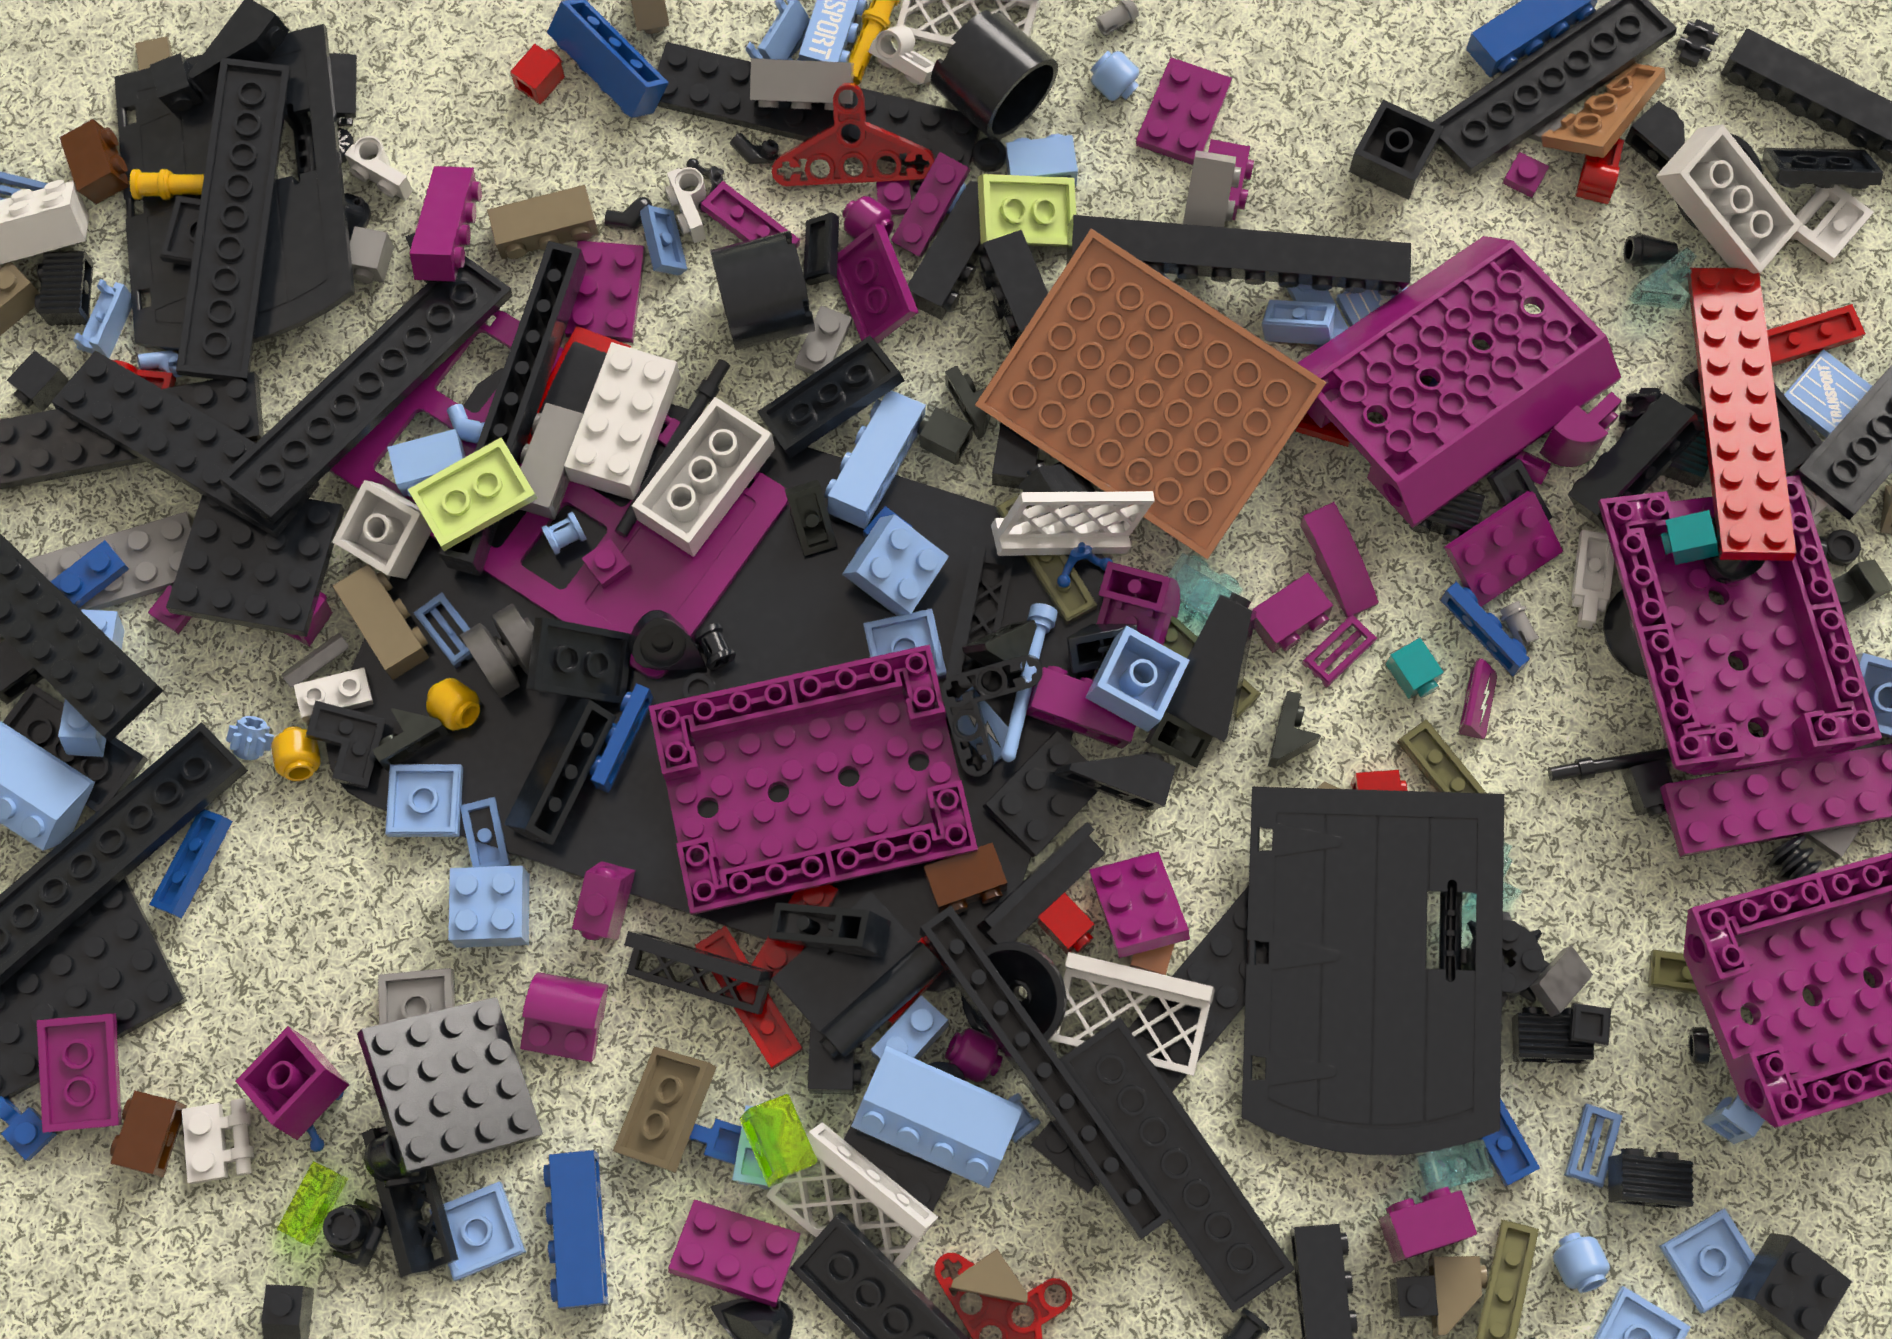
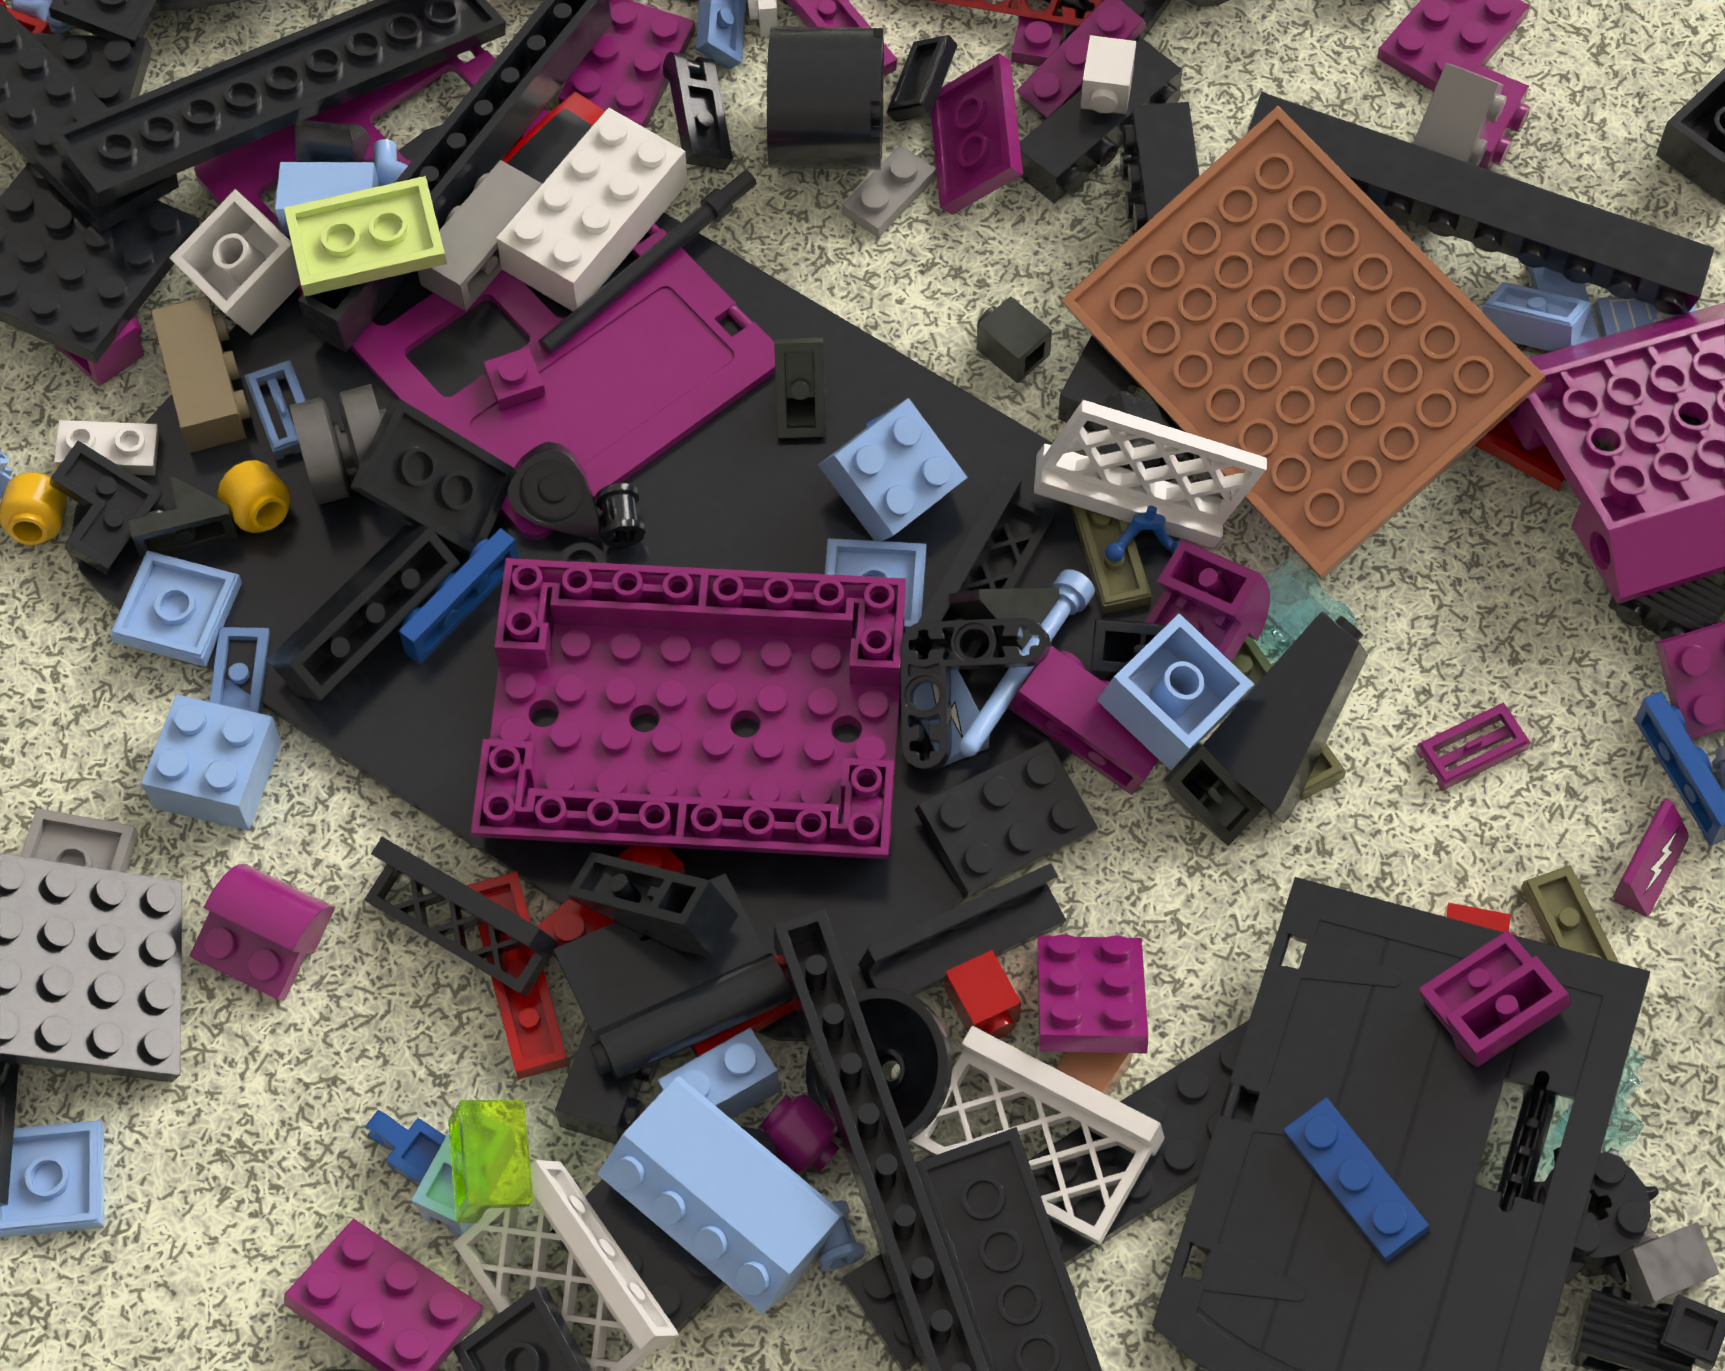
camera: 15 degrees right, 10 degrees down
(315, 660) = (101, 402): flat silver tile -> none
(416, 421) = (330, 142): none -> black tile
(563, 533) = (470, 325): light blue bush -> none
(577, 1230) = (180, 1213): blue brick -> none
(603, 901) = (362, 793): magenta torso -> none
(664, 1109) = (353, 1085): dark tan plate -> none
(669, 316) = (698, 110): none -> black plate
(704, 476) = (675, 300): white brick -> none
(830, 396) = (875, 251): black plate -> none
(864, 213) = (987, 42): magenta head -> none
(875, 459) = (908, 341): light blue brick -> none
(956, 219) = (1108, 74): none -> white brick
(965, 395) = (1051, 288): pearl dark grey slope -> none
(966, 879) = (864, 894): reddish brown brick -> none
(989, 155) = (1178, 22): black tile -> none
(1026, 203) = (1214, 81): yellowish green plate -> none
(1042, 157) = (1243, 46): light blue brick -> none
(1134, 779) = (1127, 825): black slope -> none
(1289, 740) = (1369, 837): pearl dark grey slope -> none
(1291, 613) = (1418, 678): magenta brick -> none
(1339, 559) = (1505, 625): magenta slope -> none
(1349, 986) = (1356, 1180): none -> blue plate
(1409, 842) = (1494, 998): none -> magenta brick
(1415, 669) = (1572, 794): teal brick -> none

